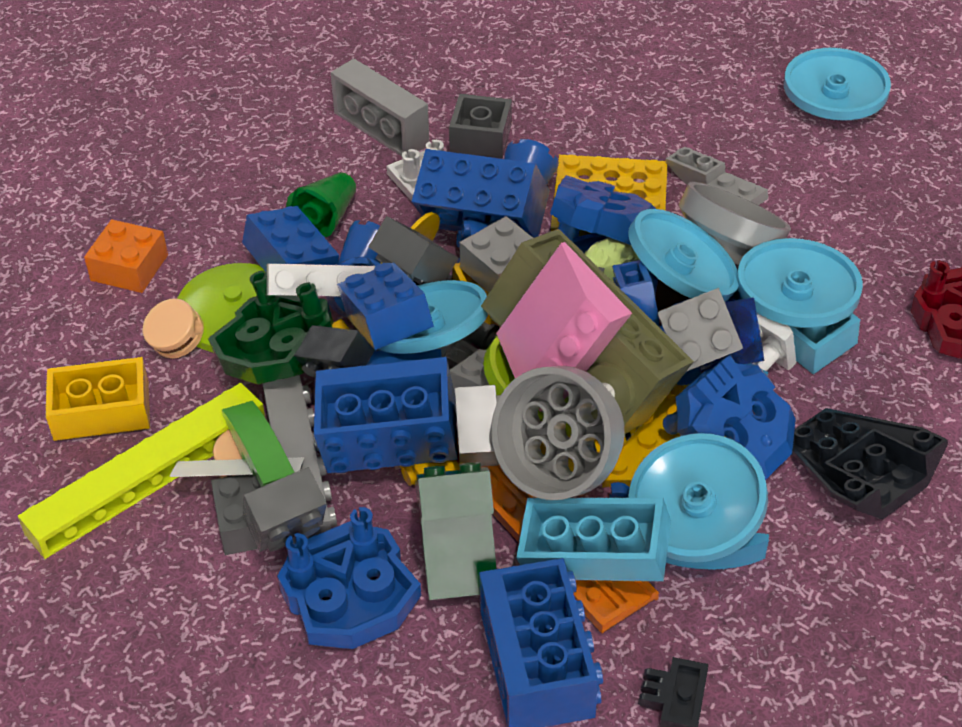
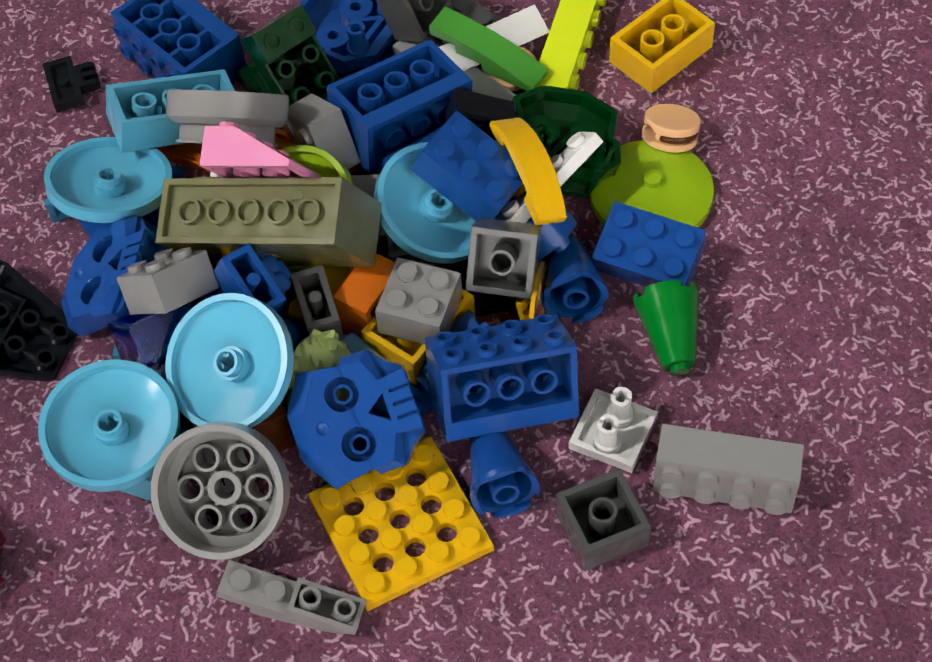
camera: 150 degrees right, 10 degrees up
(126, 256) = (790, 171): orange brick -> none
(333, 279) = (534, 168): none -> yellow slope

